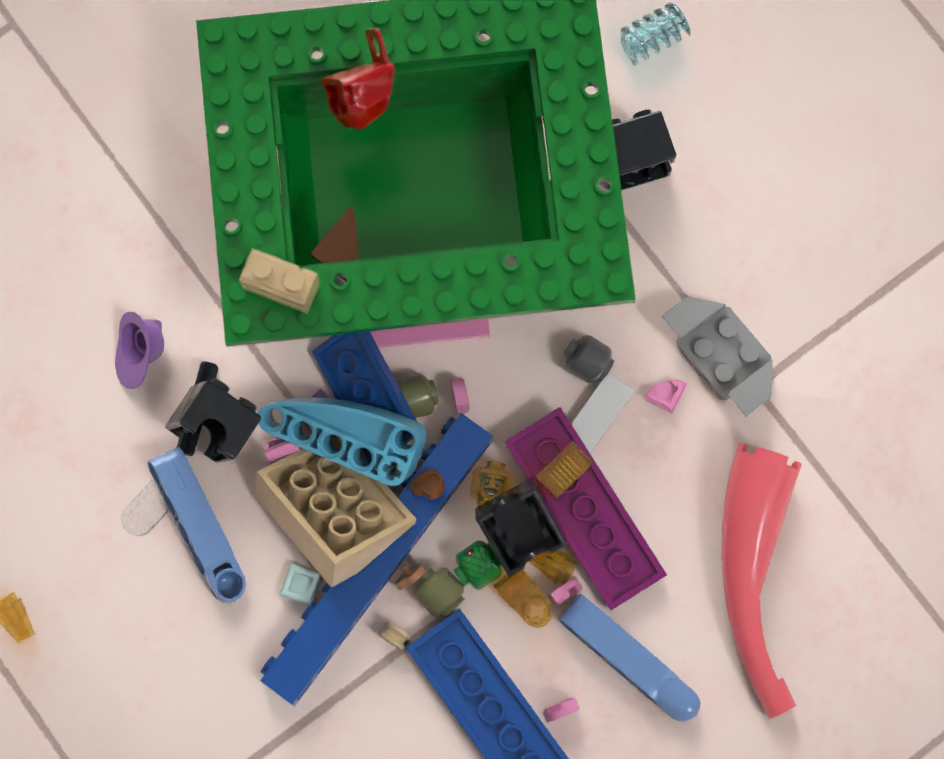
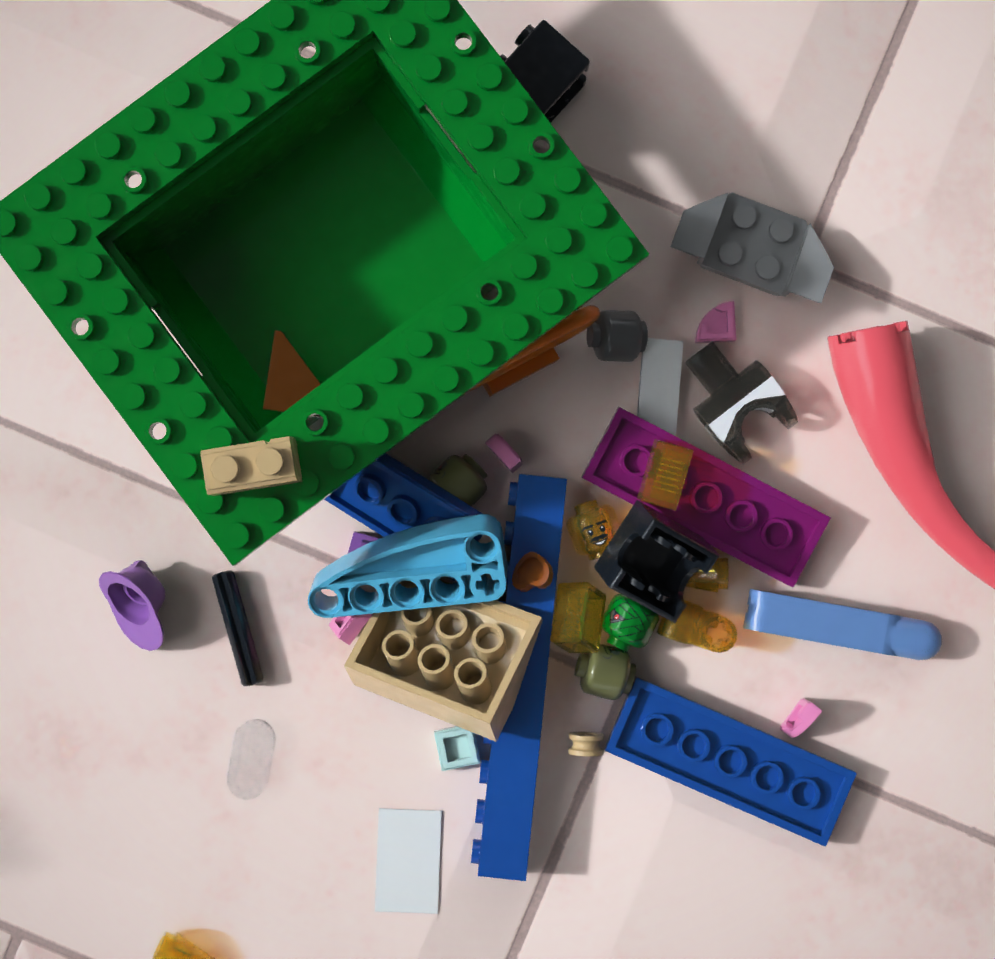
camera: 30 degrees left, 10 degrees up
(198, 525) = (314, 751): medium blue piece -> none
(215, 647) = (408, 861): none -> white sticker
(223, 415) = (281, 626): black piece -> none
(364, 91) = (213, 195): red piece -> none
(410, 575) = (565, 673): nougat piece -> none
(442, 539) = (578, 617): none -> clear yellow piece
(519, 332) = (541, 352): none -> orange bar
(565, 592) = (732, 598): bright pink tile -> none
(648, 451) = (734, 397): none -> clear smoke connector

